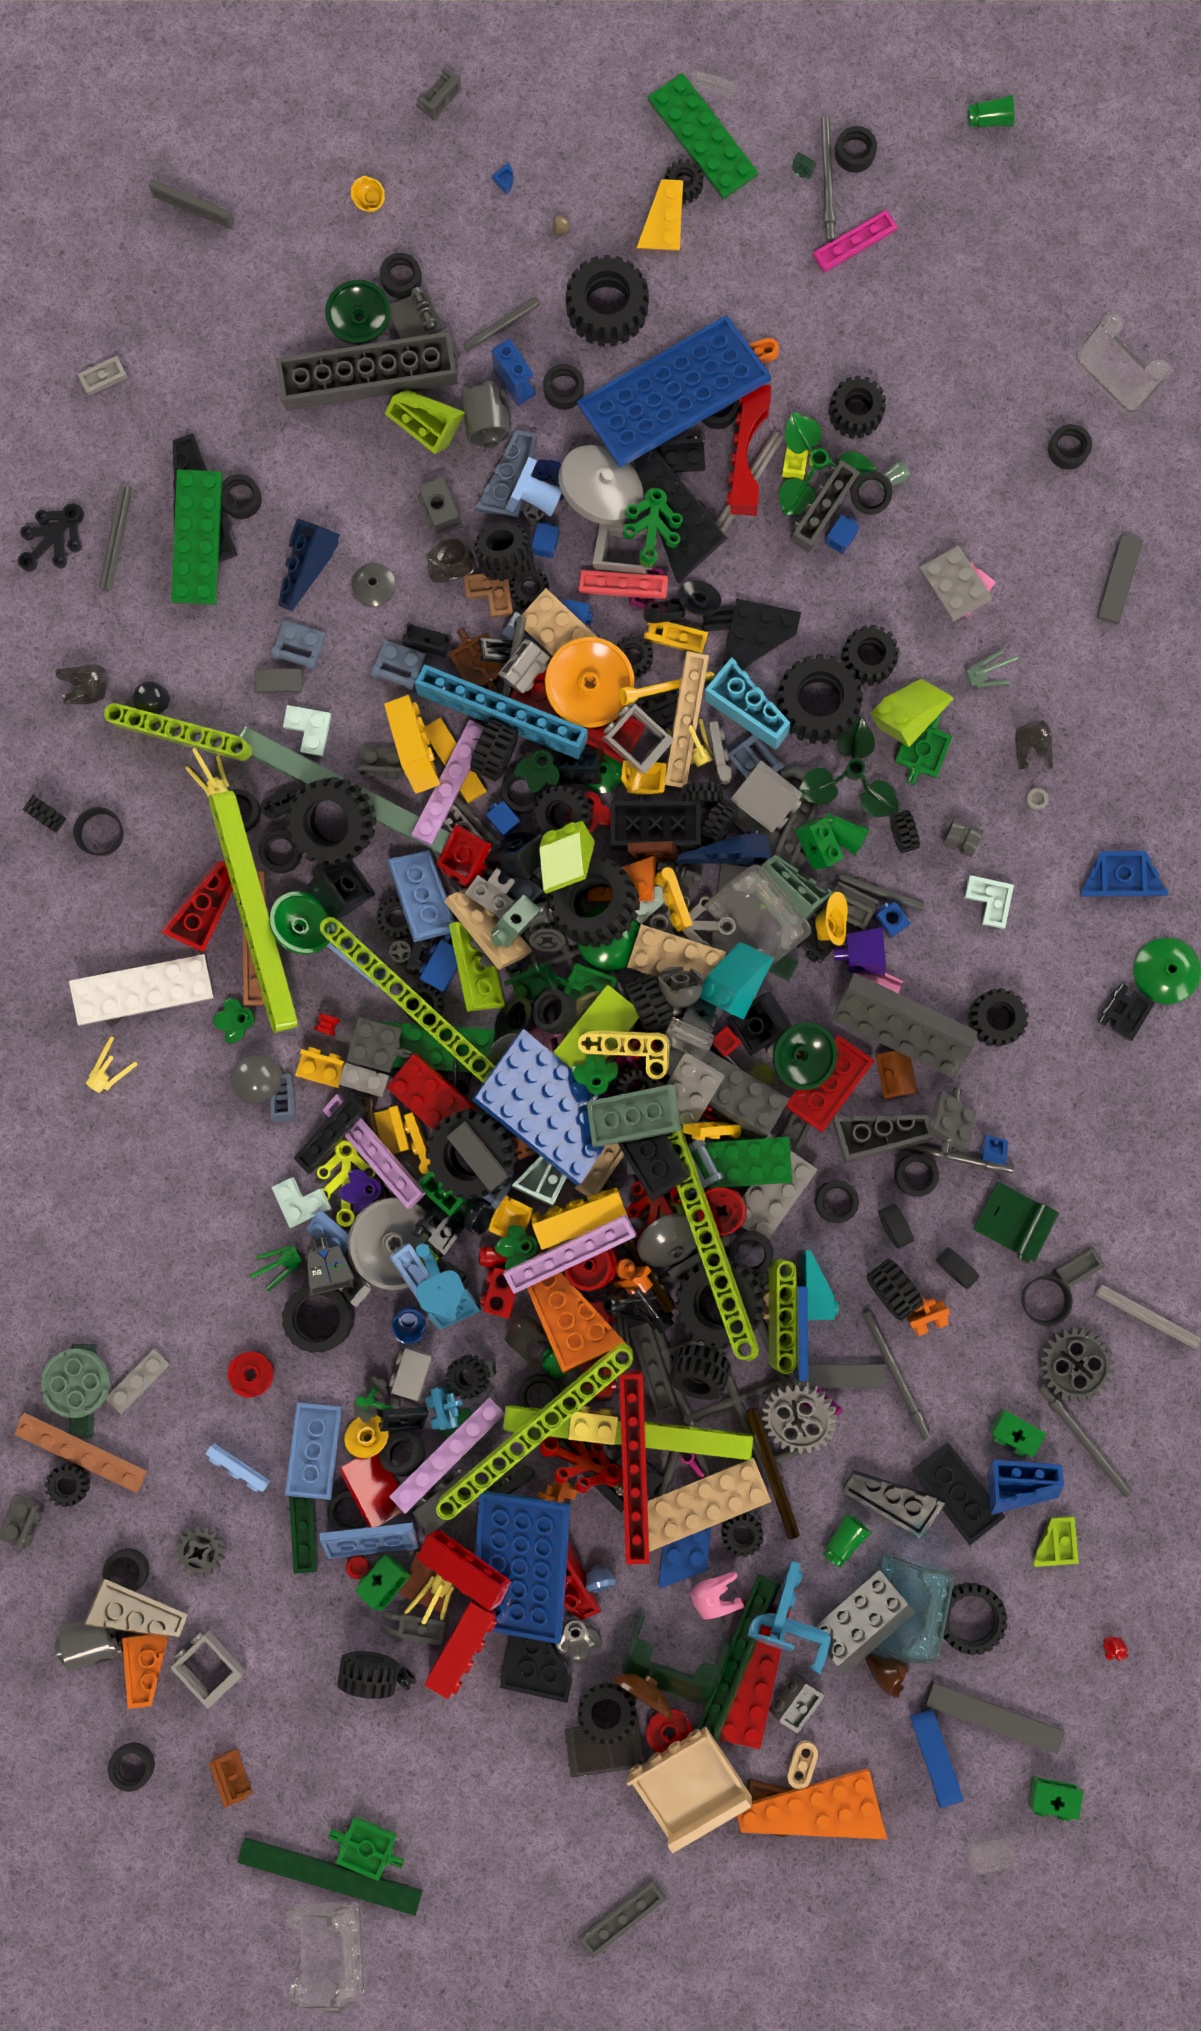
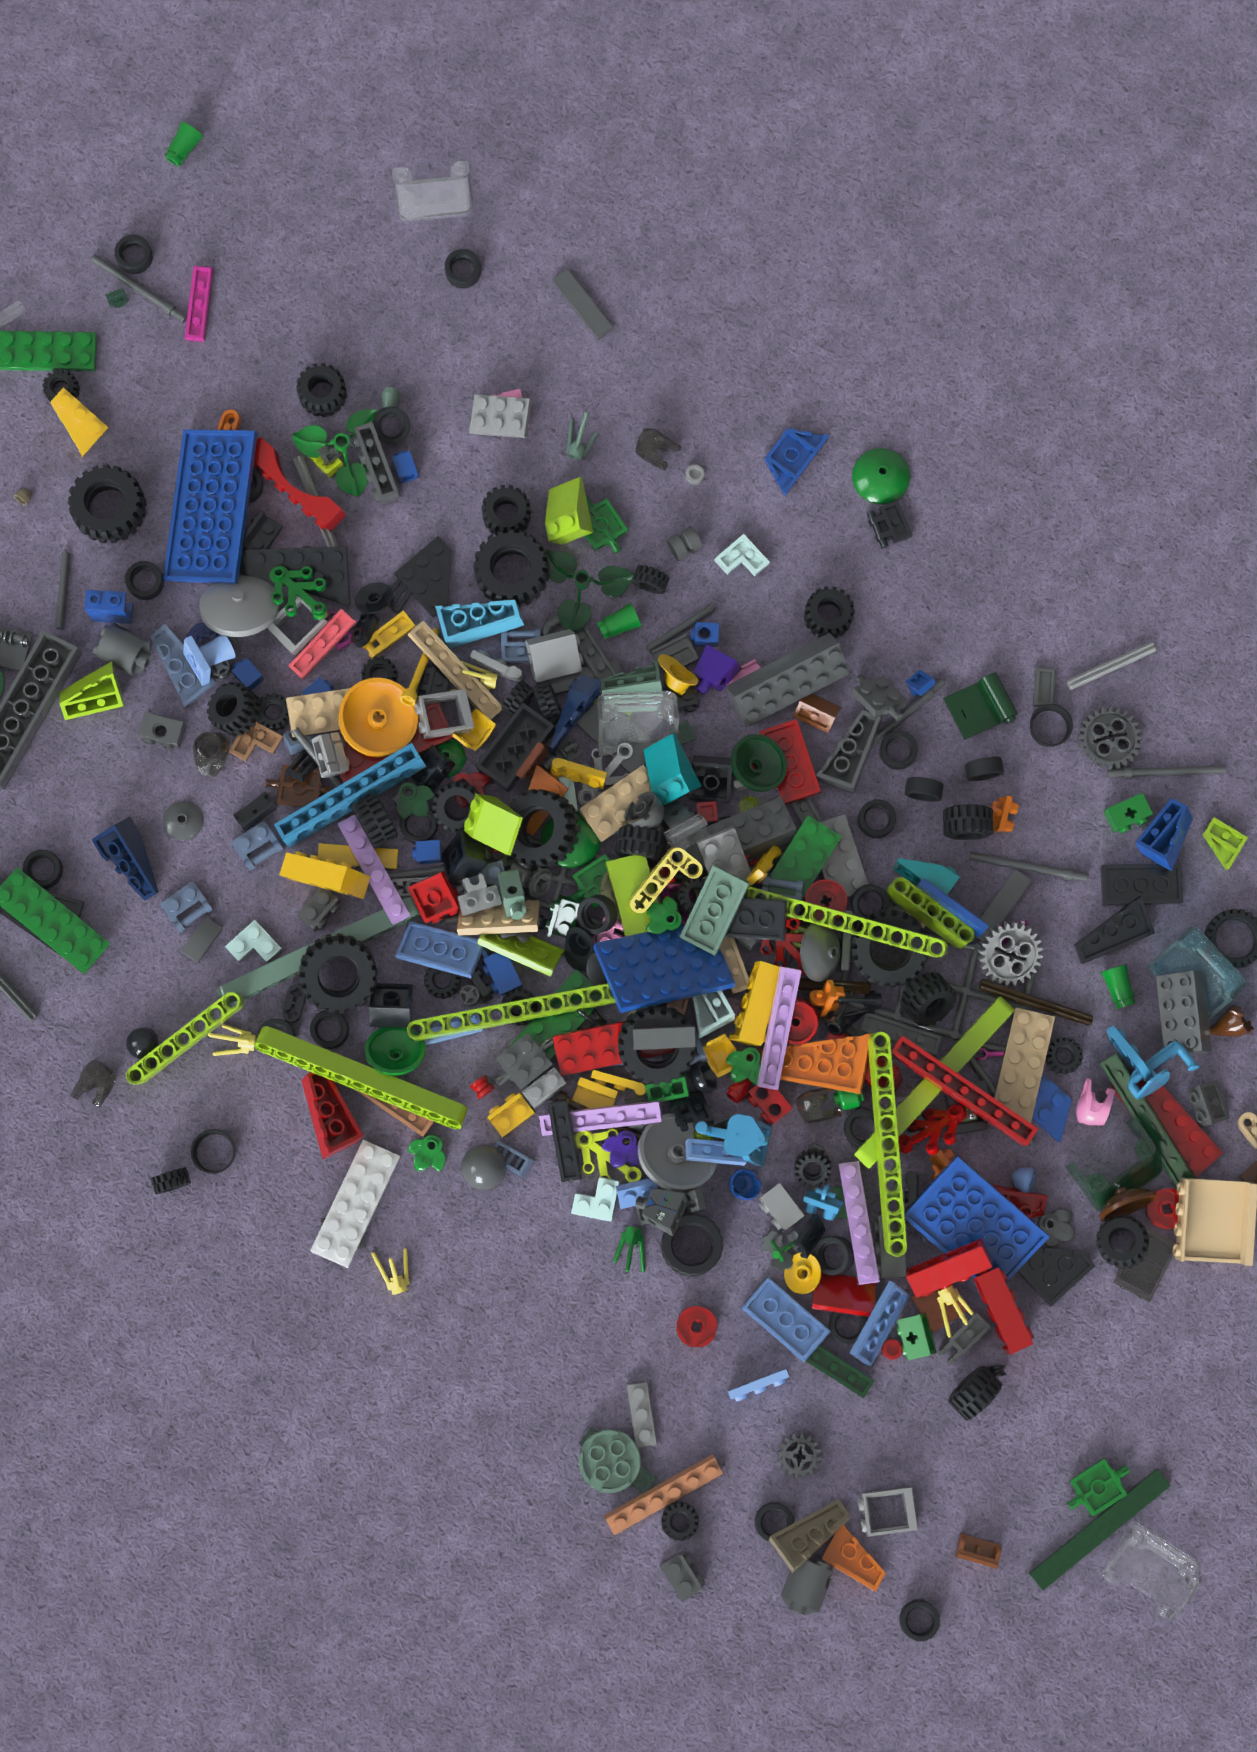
camera: 60 degrees left, 5 degrees down
(593, 1425) = (913, 1100): light yellow bracket -> none
(801, 458) = (329, 454): none -> dark grey tile
(819, 843) = (614, 643): green brick -> none

